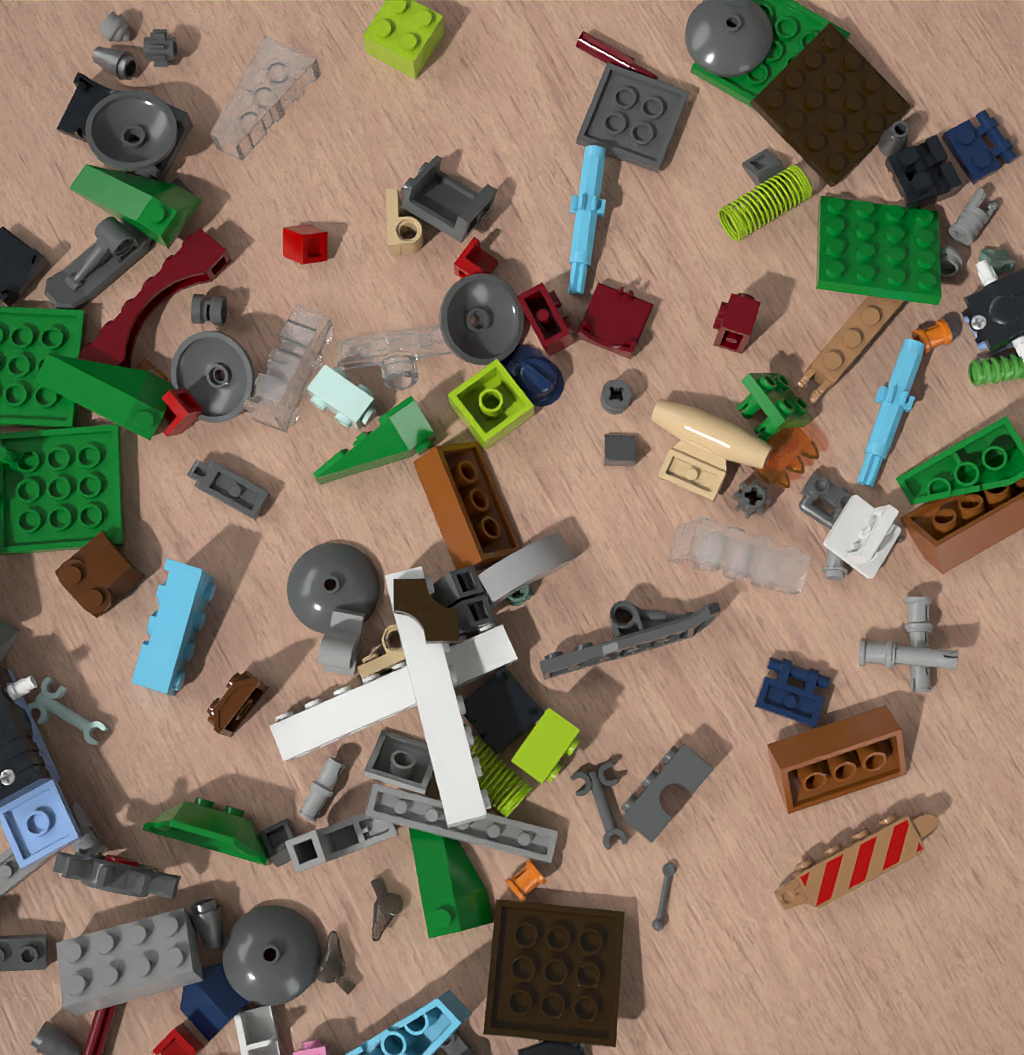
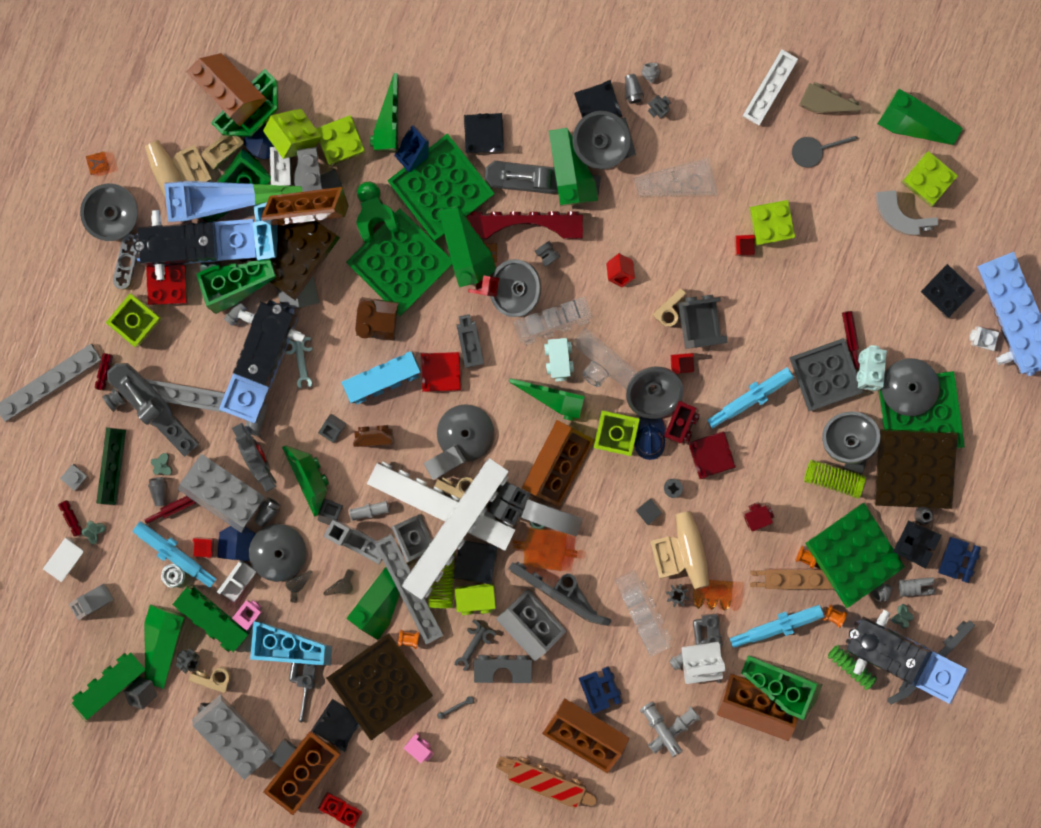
camera: 50 degrees right, 10 degrees up
(30, 1010) = (160, 465): none -> sand green piece
(181, 747) = (332, 428): none -> dark grey slope
(232, 553) = (440, 371): none -> red piece
(401, 85) = (744, 245): none -> red panel
(415, 601) = (488, 502): dark brown tile -> none
(558, 611) = (544, 549): none -> clear orange plate
(639, 708) = (531, 625): none -> light grey slope
(671, 57) = (872, 368): none -> light aqua brick
(678, 990) = (419, 748): none -> bright pink brick
(732, 143) = (849, 428): none -> dark grey dish
(778, 402) = (733, 568): green plate -> none
(832, 310) = (806, 557): none -> orange bush

